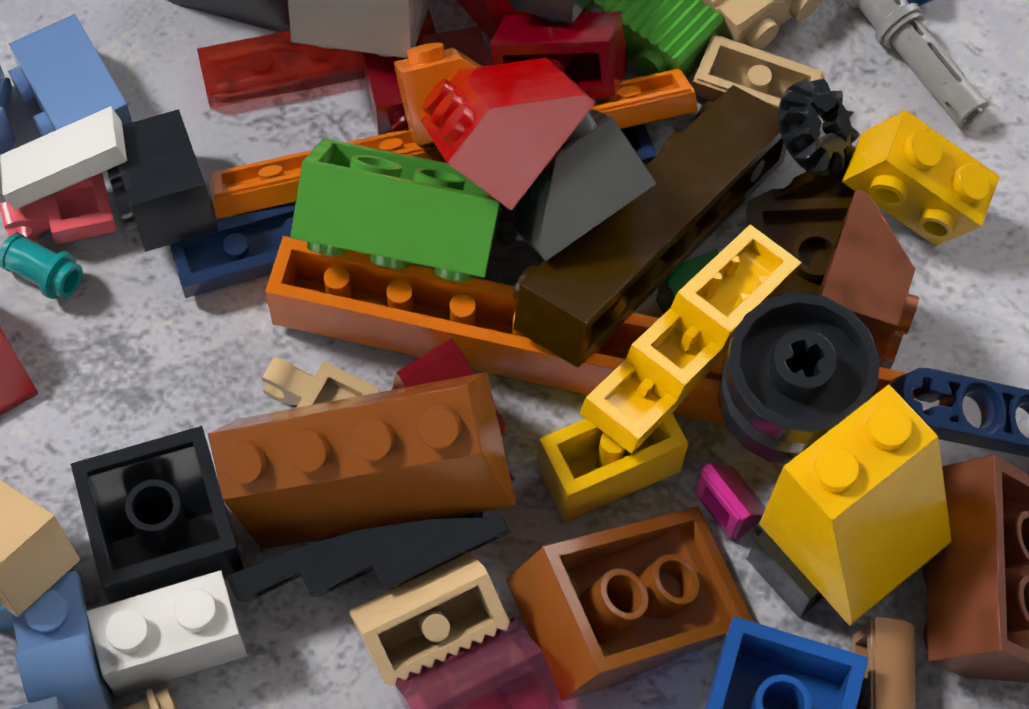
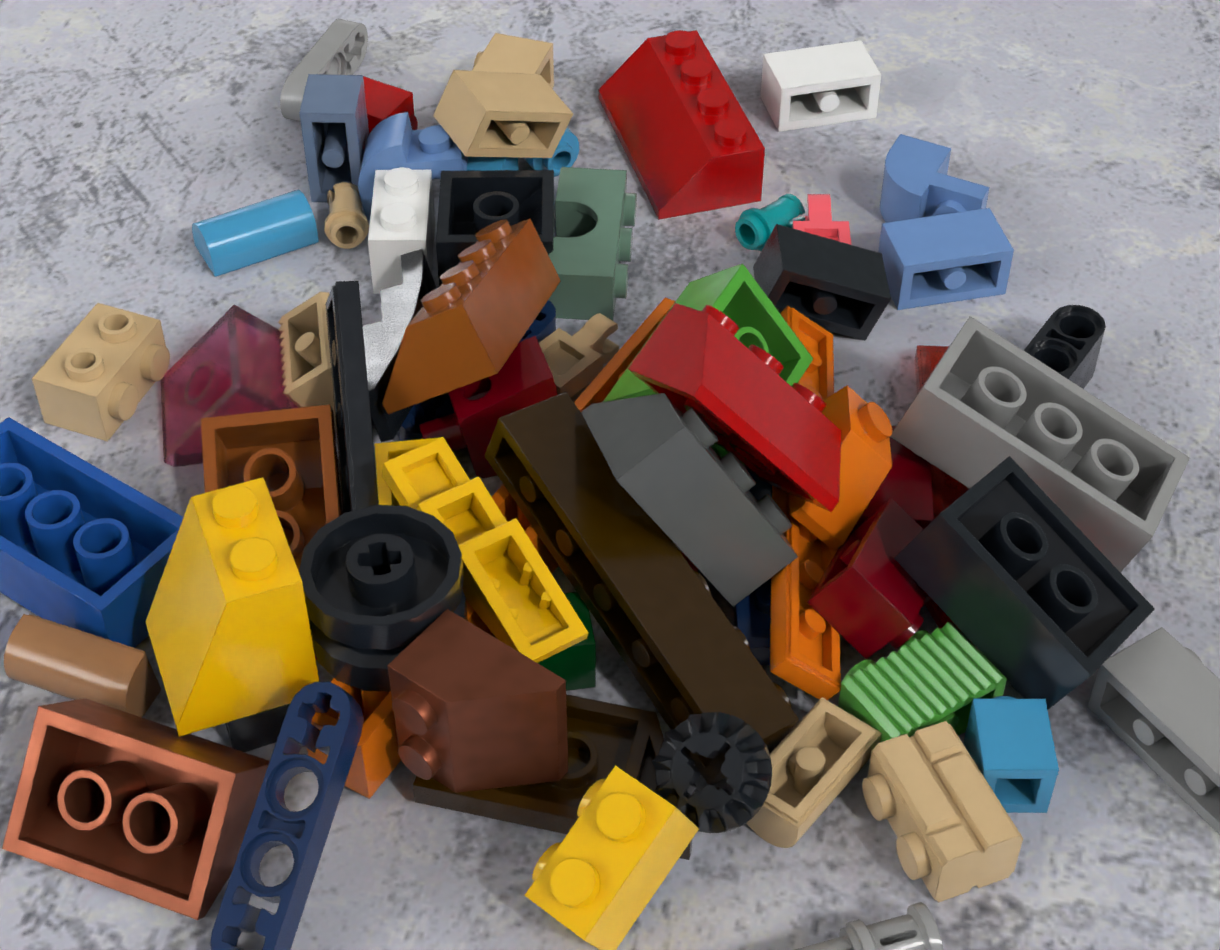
camera: 110 degrees right, 20 degrees down
(62, 158) = (854, 218): white tile -> none
(86, 425) = (592, 241): none -> sand green arch
(521, 528) = (351, 397): none -> black tile

